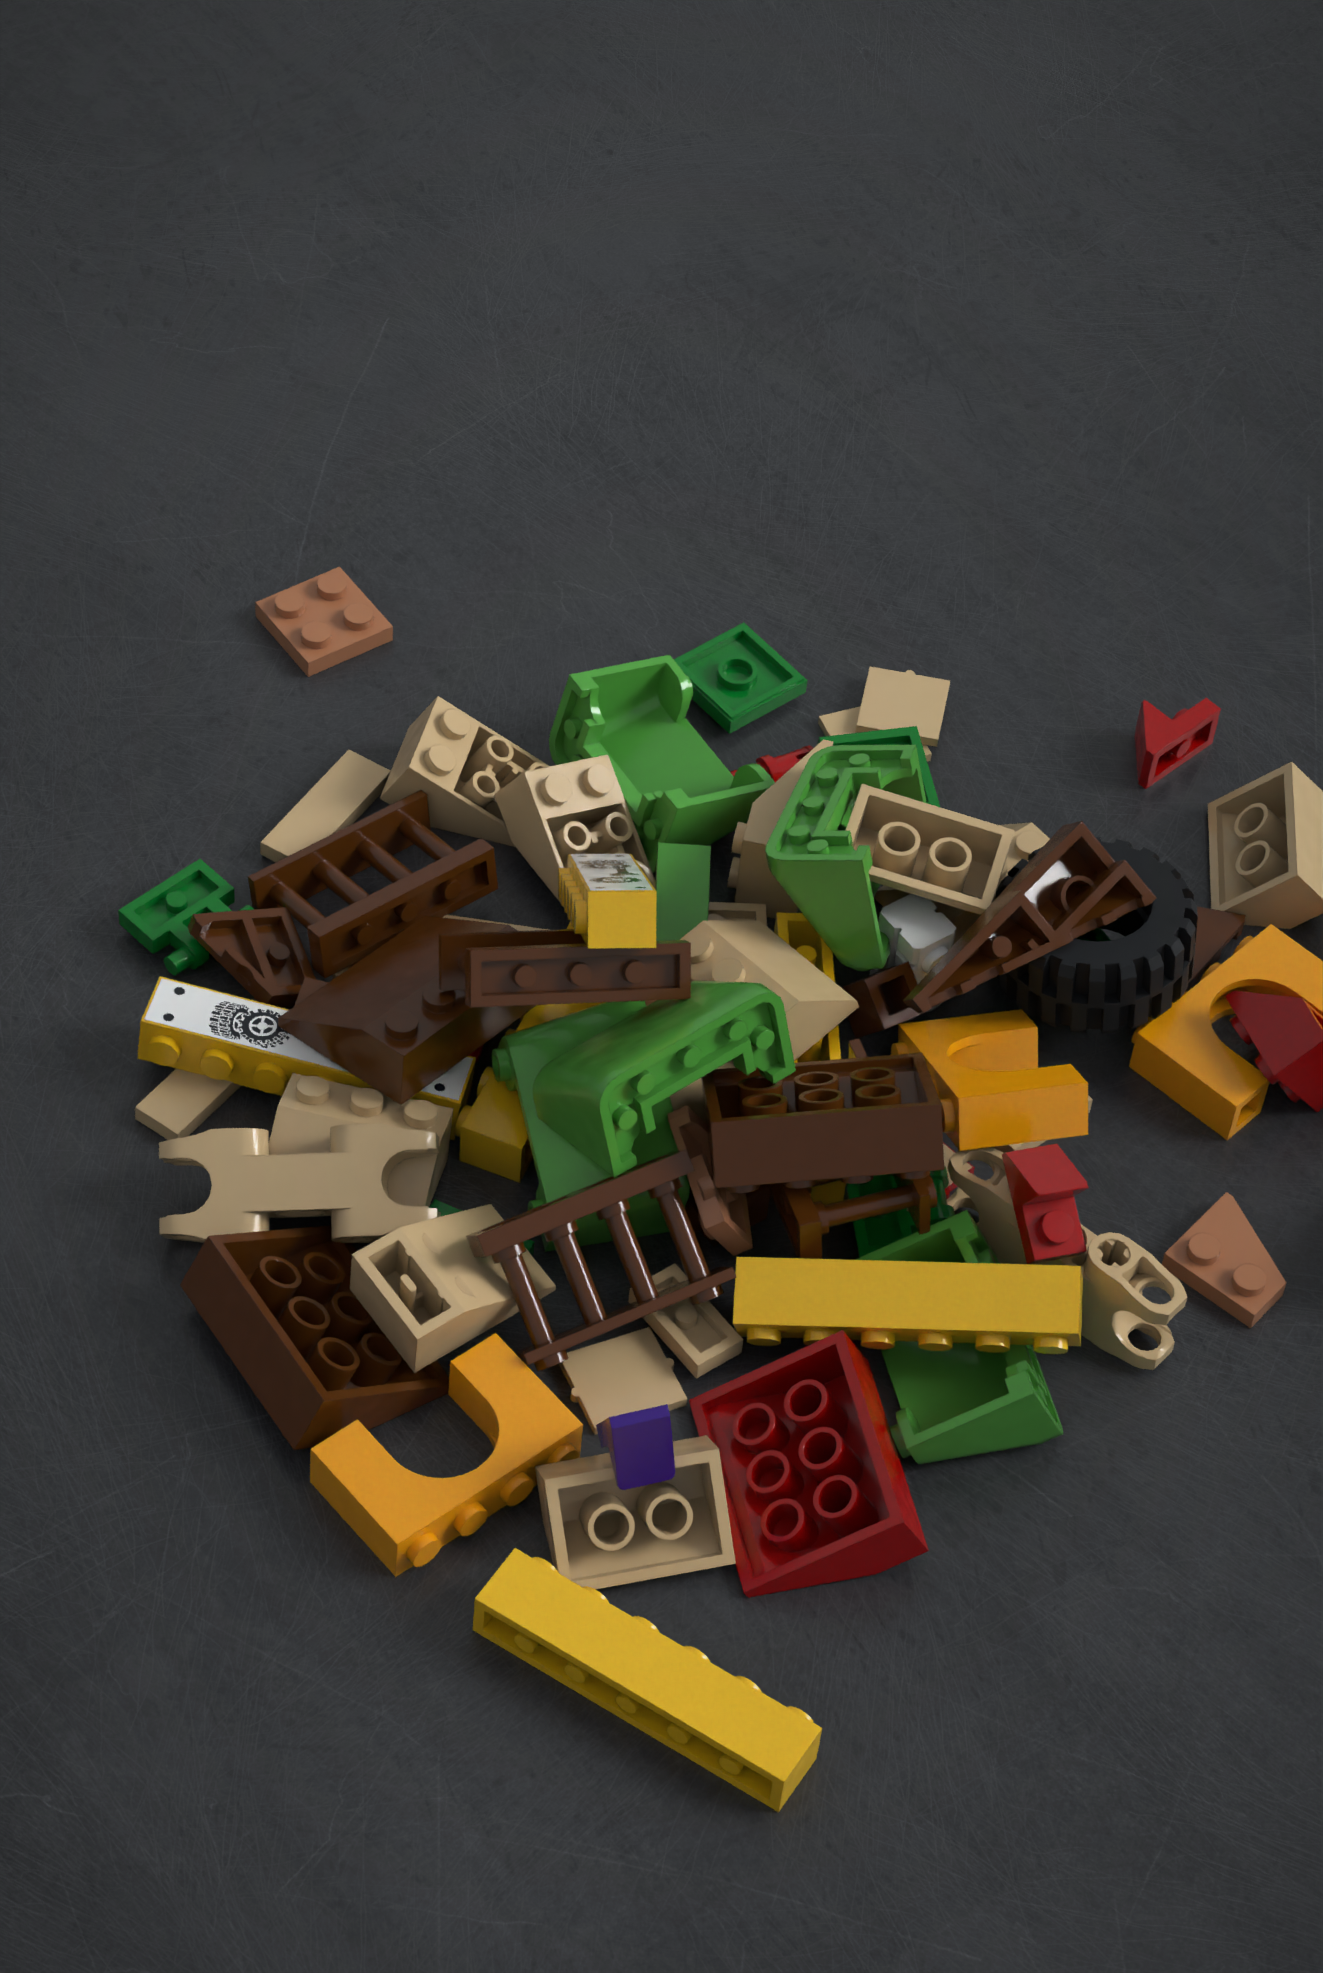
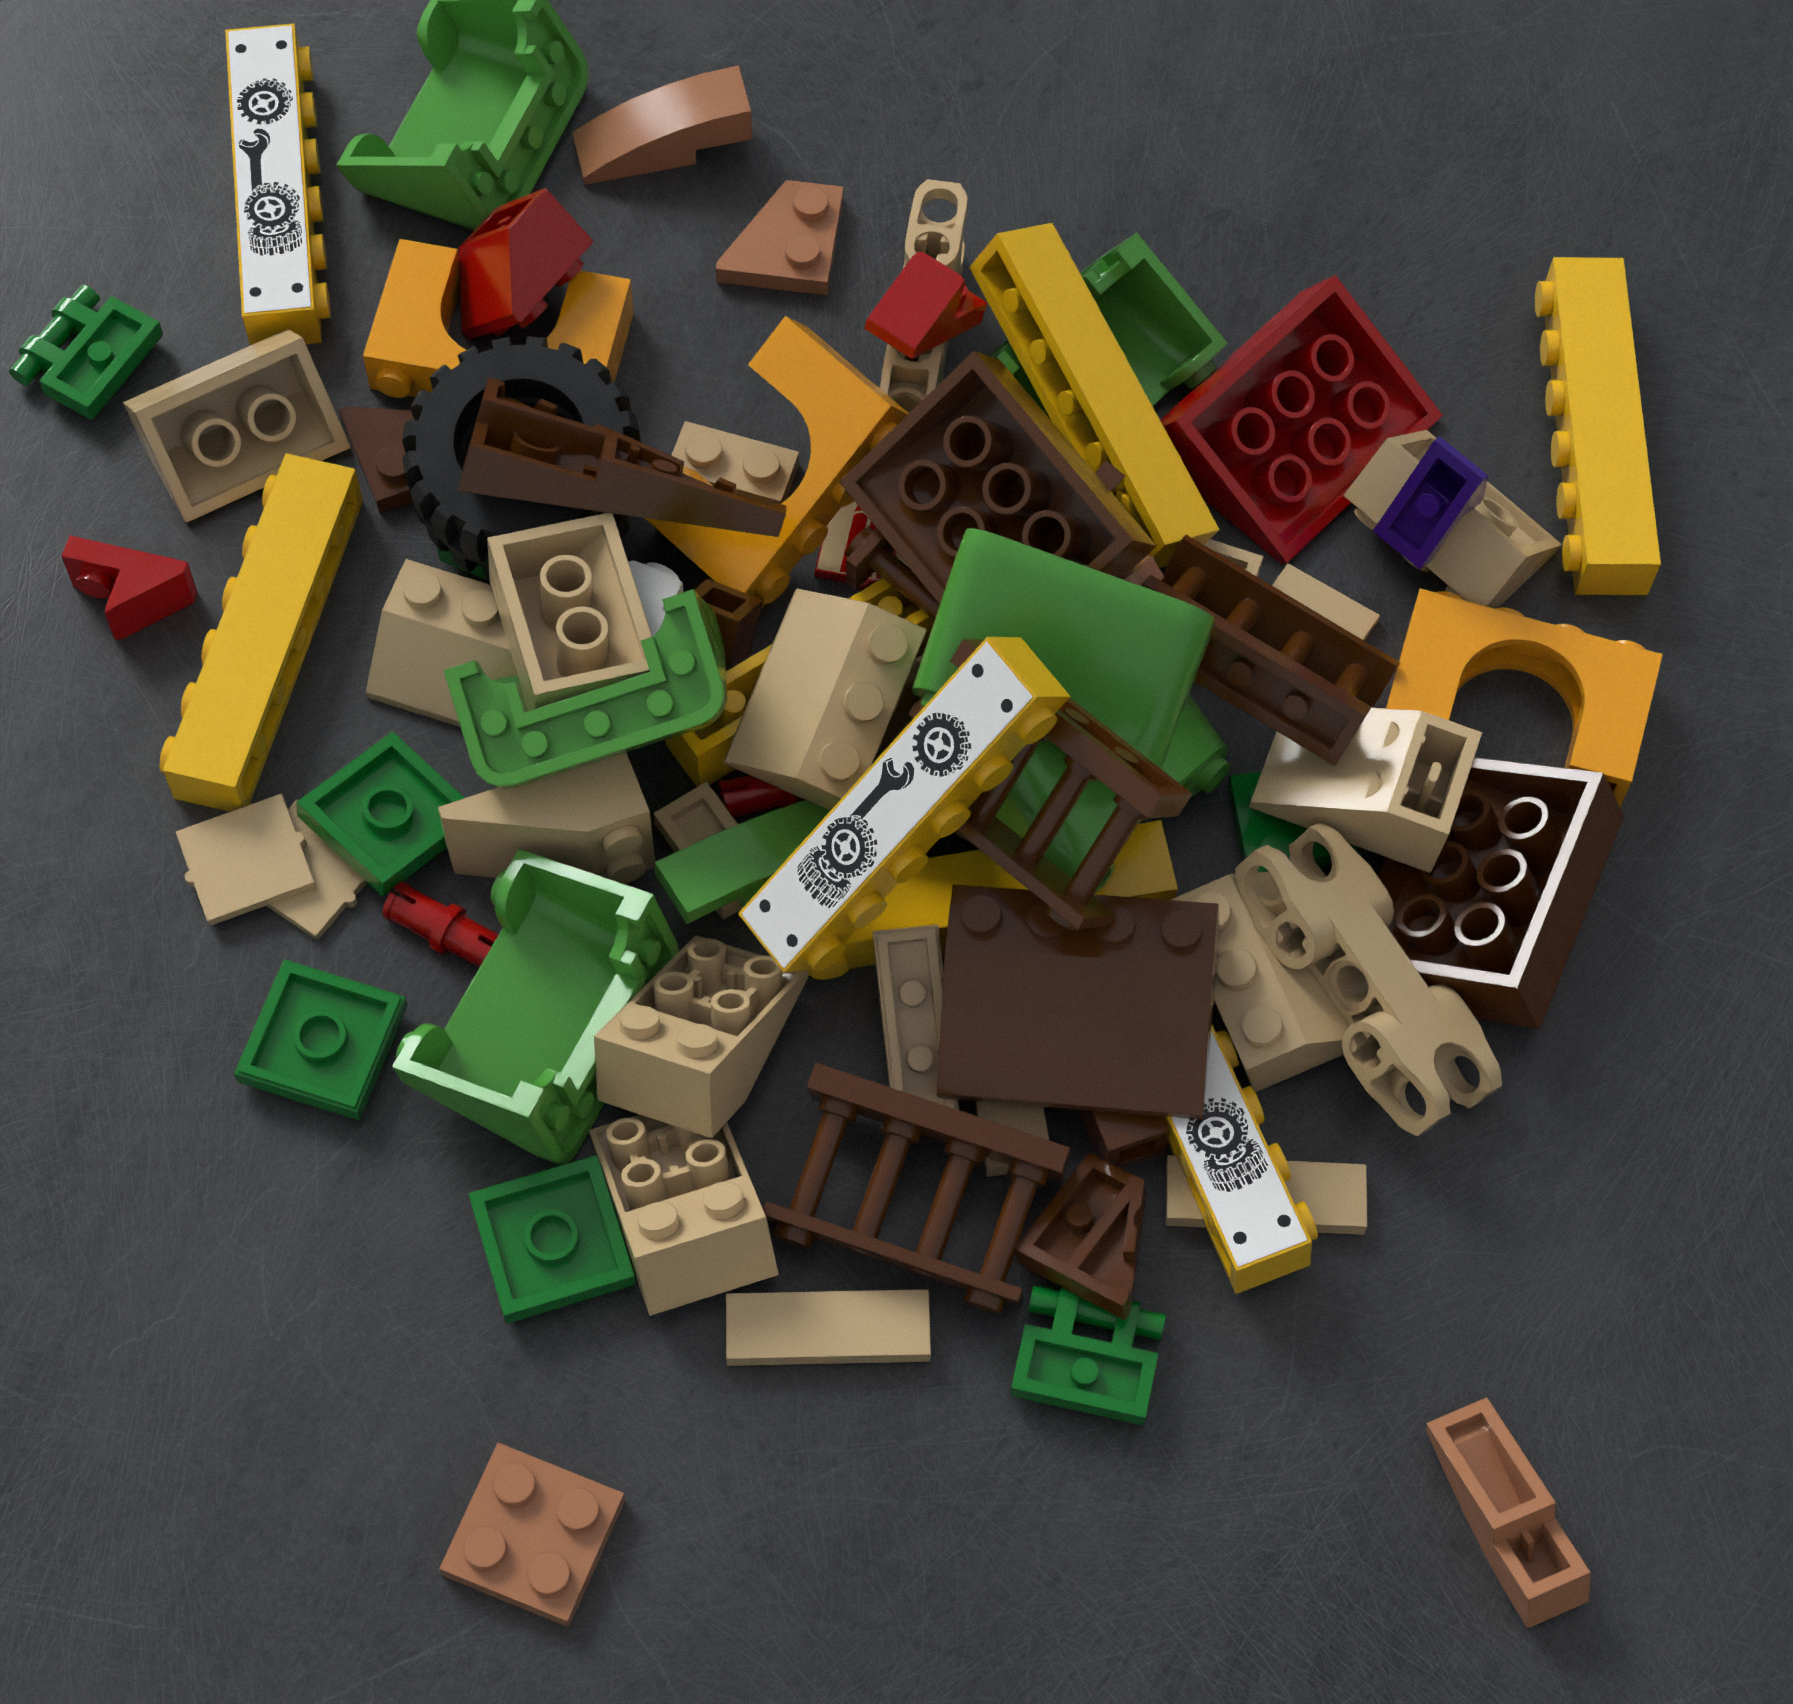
camera: 120 degrees left, 15 degrees up
(510, 703) = (552, 1239): none -> green plate
(1066, 775) = (262, 634): none -> yellow brick

